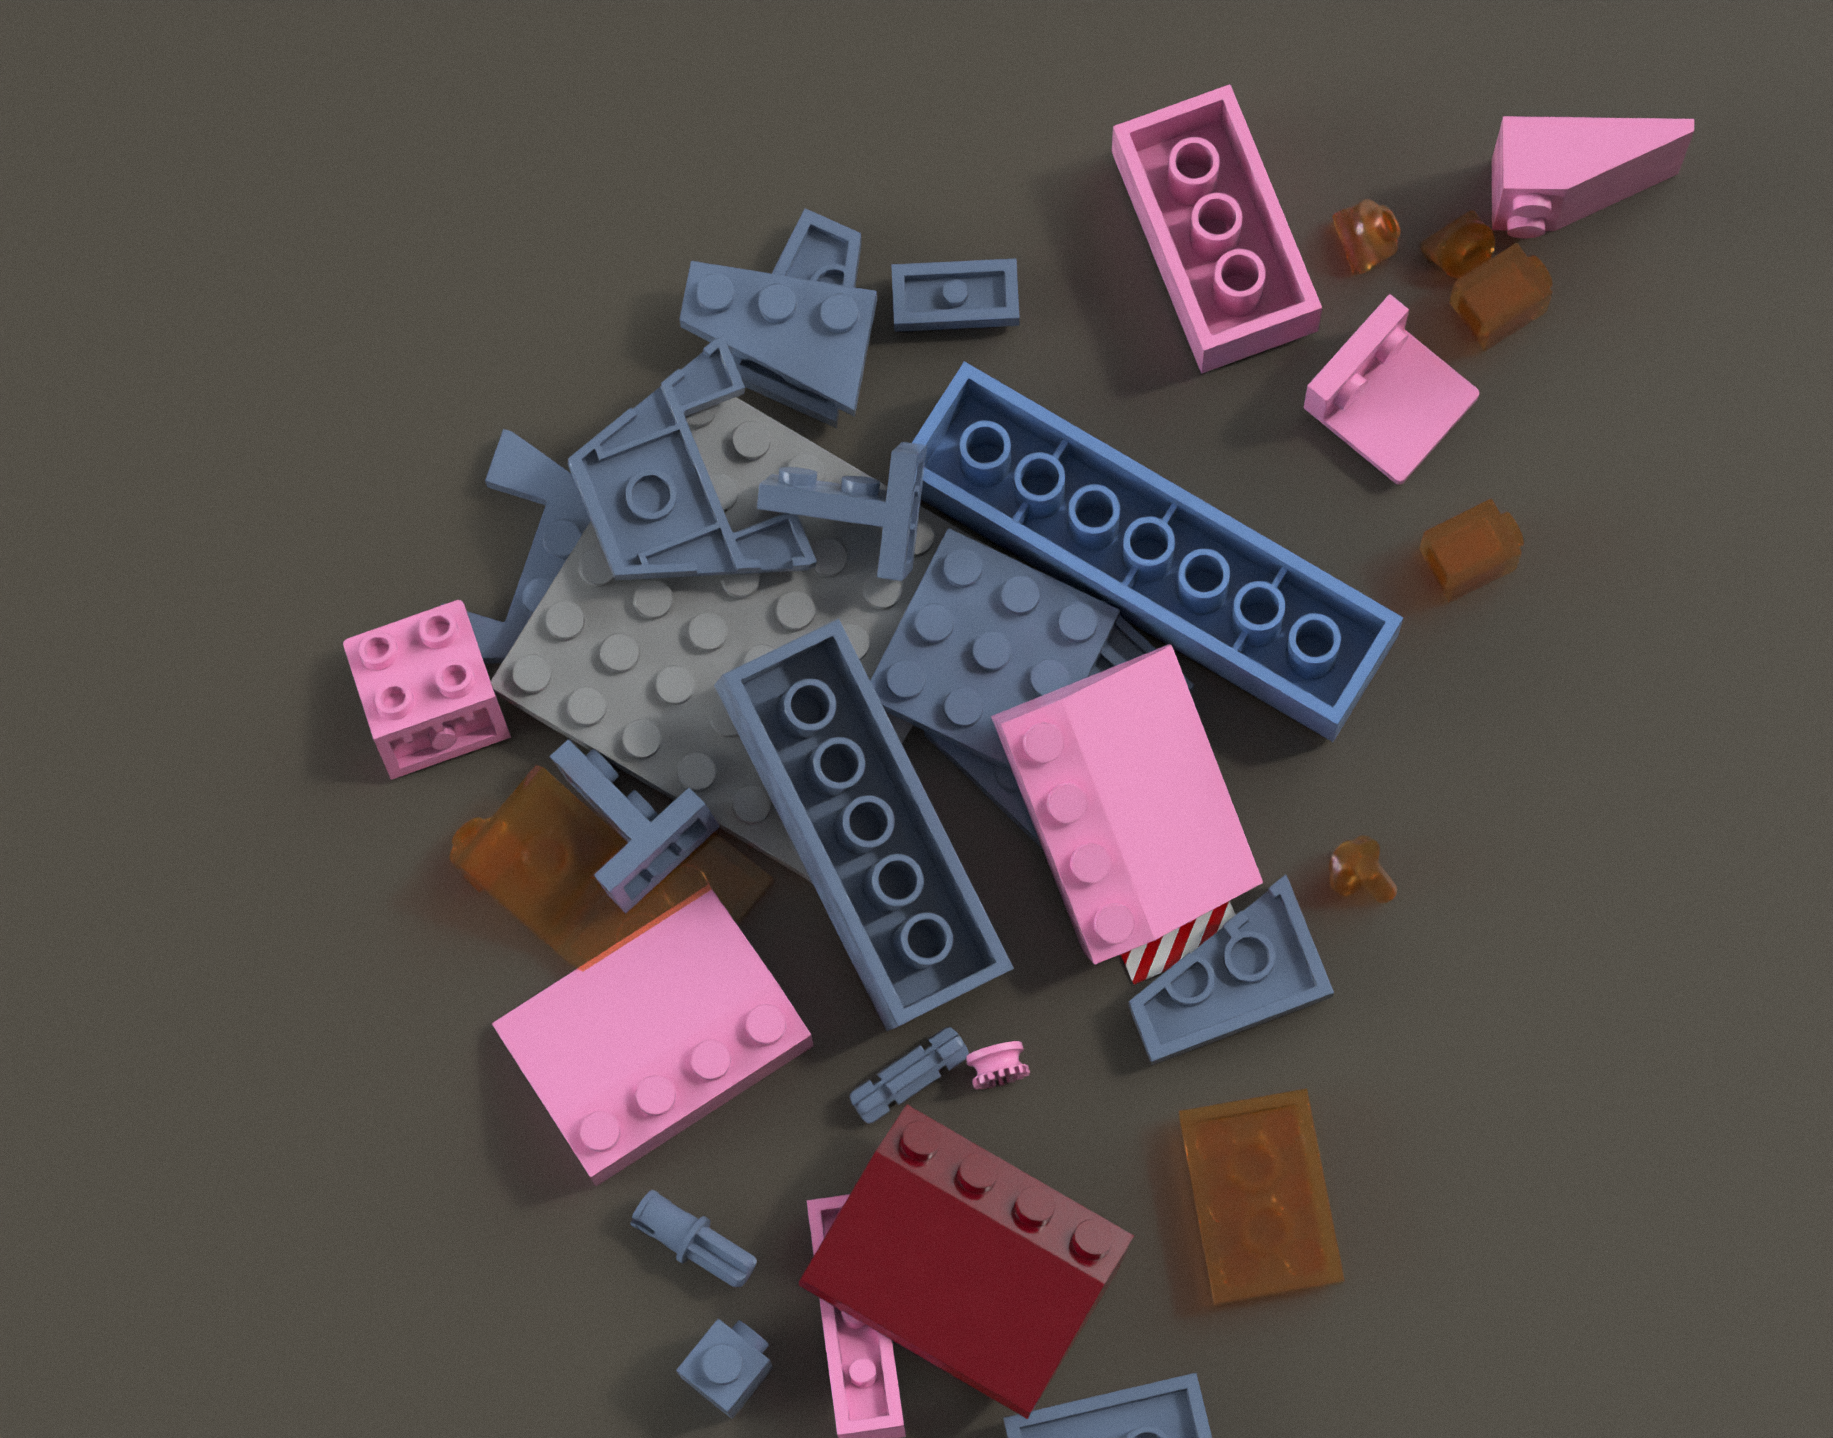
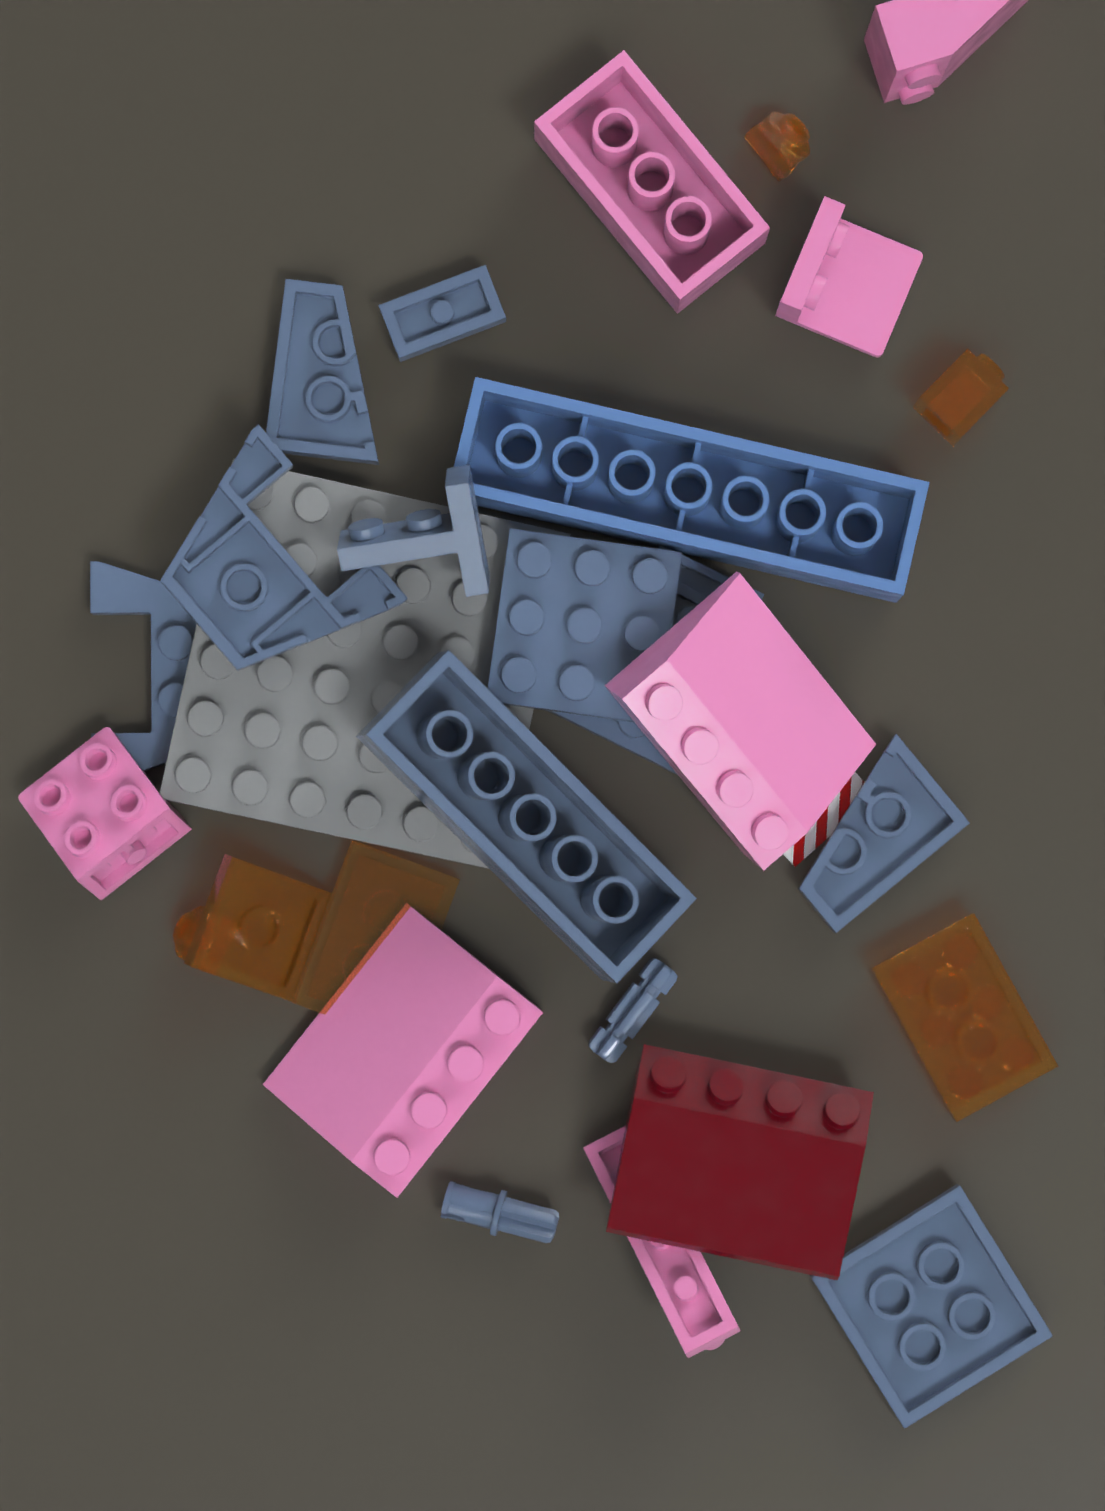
camera: 25 degrees left, 10 degrees up
(654, 840) = (350, 892): sand blue bracket -> none
(727, 1366) = (565, 1313): sand blue brick -> none
(790, 325) = (305, 390): sand blue wing -> none
(997, 1063) = (706, 976): bright pink bush -> none
(1356, 865) = (951, 703): clear orange plate -> none
(1460, 245) = (864, 127): clear orange plate -> none
(1502, 295) = (915, 161): clear orange brick -> none

